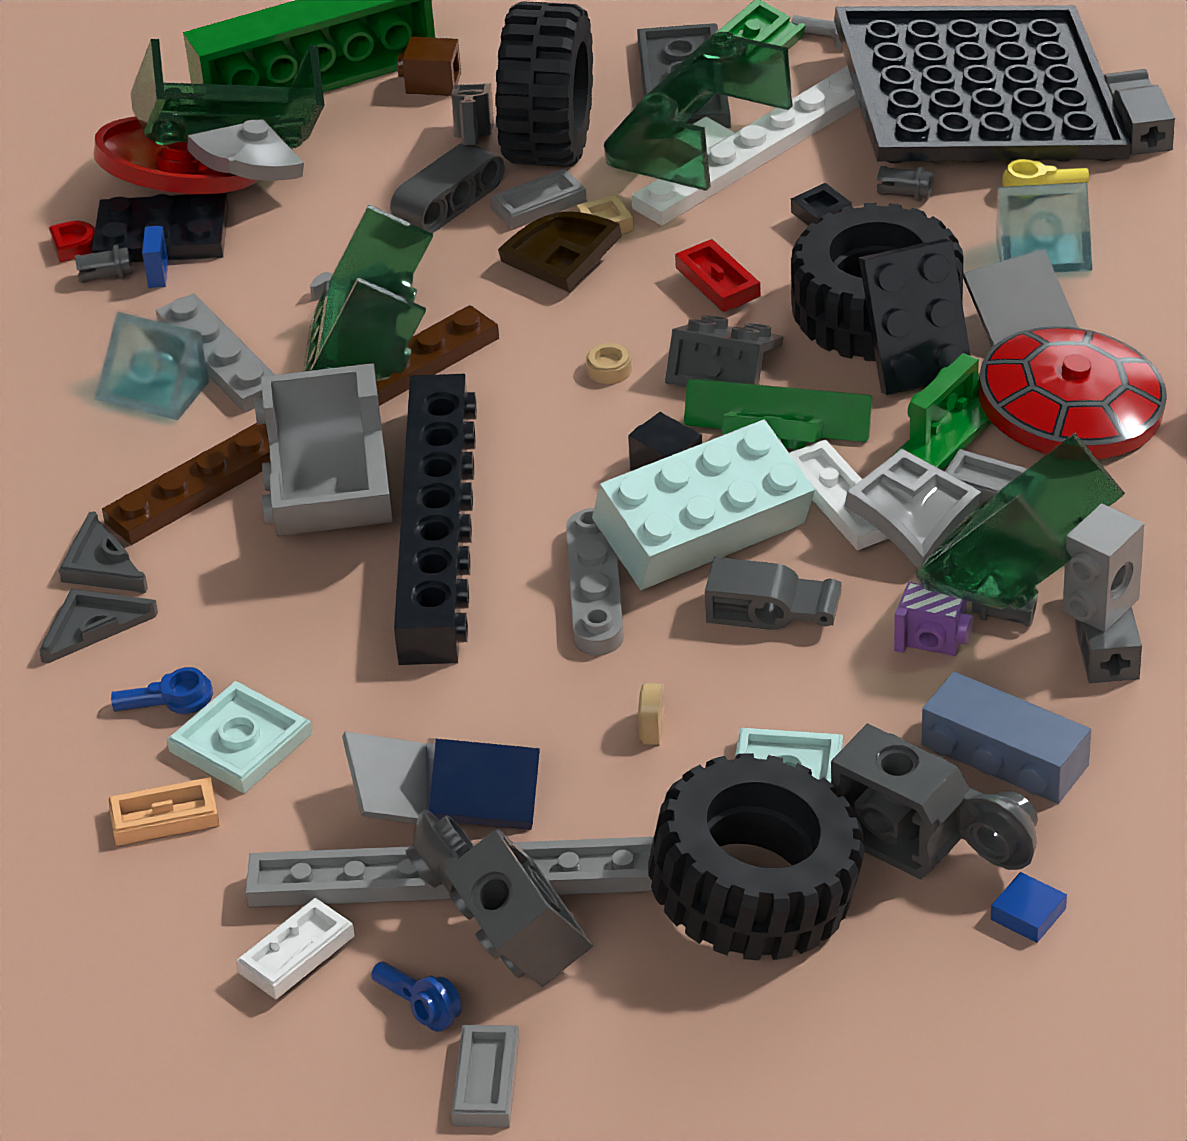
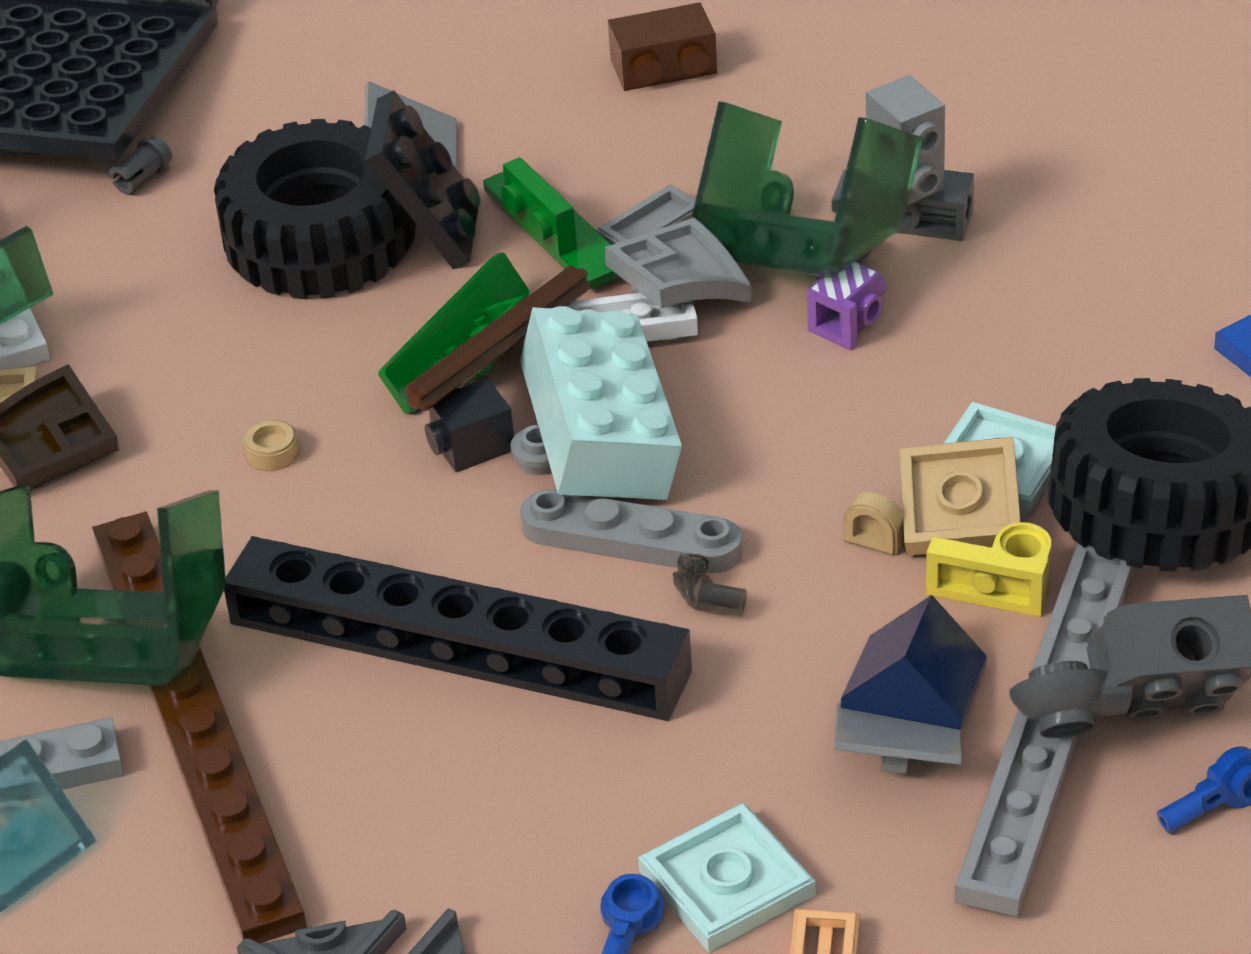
camera: 70 degrees left, 0 degrees up
(295, 948) = (1111, 881): white plate -> none
(323, 451) = (330, 694): light grey cylinder -> none
(539, 636) = (700, 590): none -> clear smoke arm
(627, 799) = (1004, 577): none -> light yellow plate
(694, 738) = (958, 492): none -> tan plate
(717, 275) = (192, 326): red plate -> none
(718, 352) = (335, 348): dark grey bracket -> none
(729, 418) = (493, 340): none -> reddish brown axle
(767, 595) = (741, 406): dark grey piece -> none
(817, 202) = (137, 229): black plate -> none
(921, 806) = (1135, 338): dark grey brick -> none
(1006, 737) = (1035, 295): sand blue brick -> none
(1029, 172) = (203, 84): light yellow plate -> none
(1046, 218) = (308, 84): clear light blue slope -> none
(1068, 382) = (568, 132): red dish -> none

